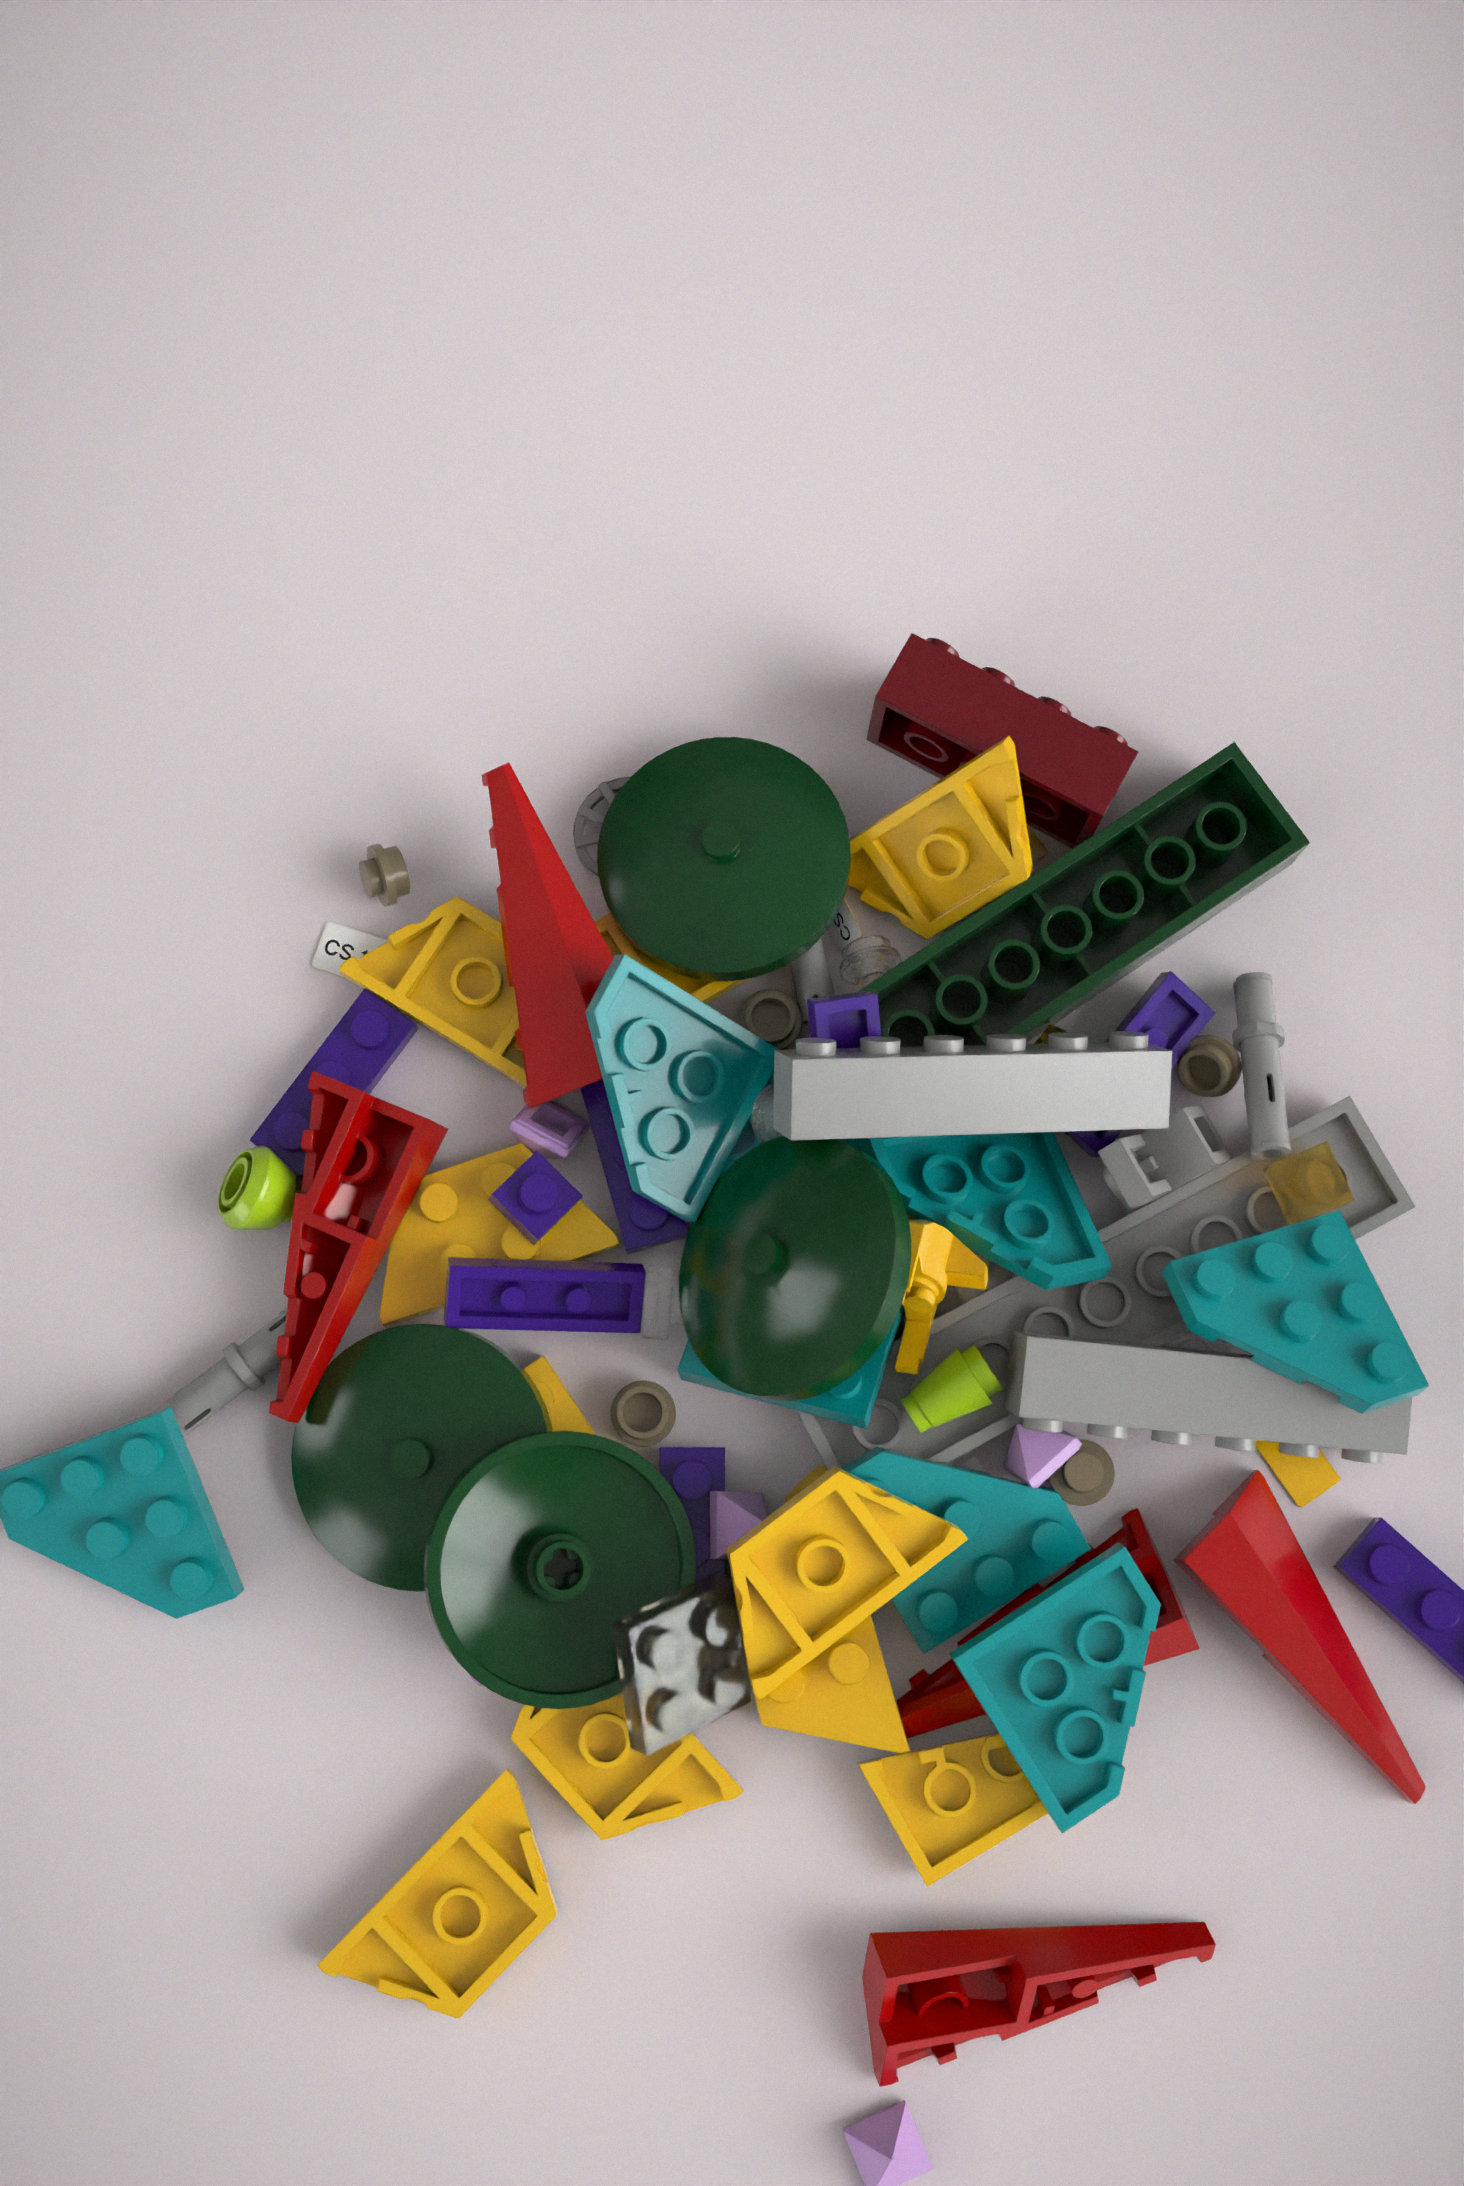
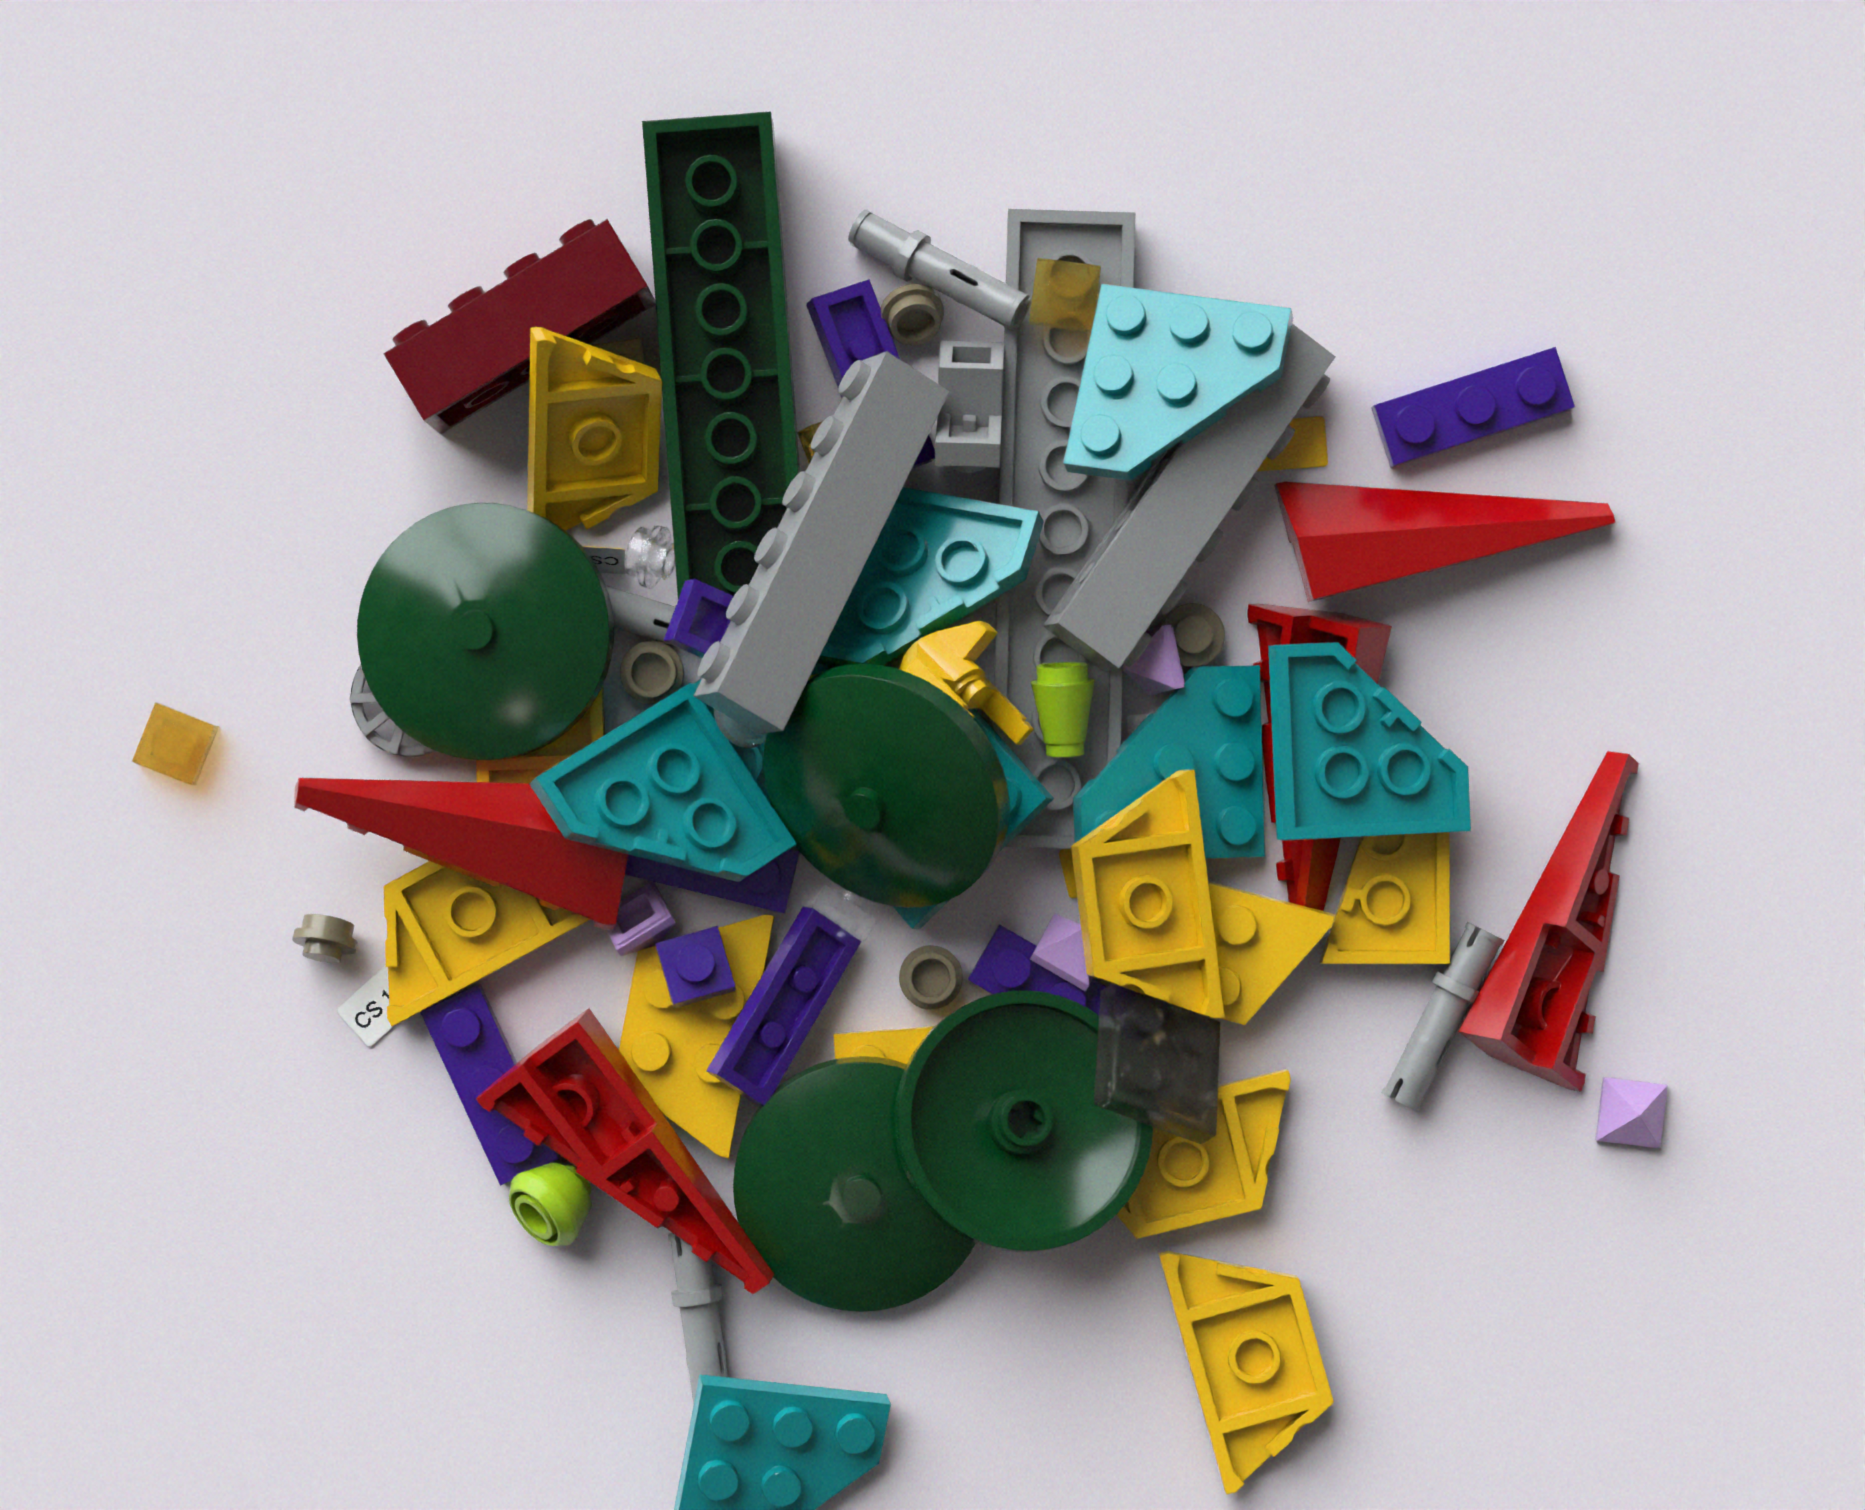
camera: 60 degrees left, 10 degrees up
(481, 666) = (175, 744): none -> clear yellow plate
(875, 1909) = (1442, 1016): none -> light grey pin

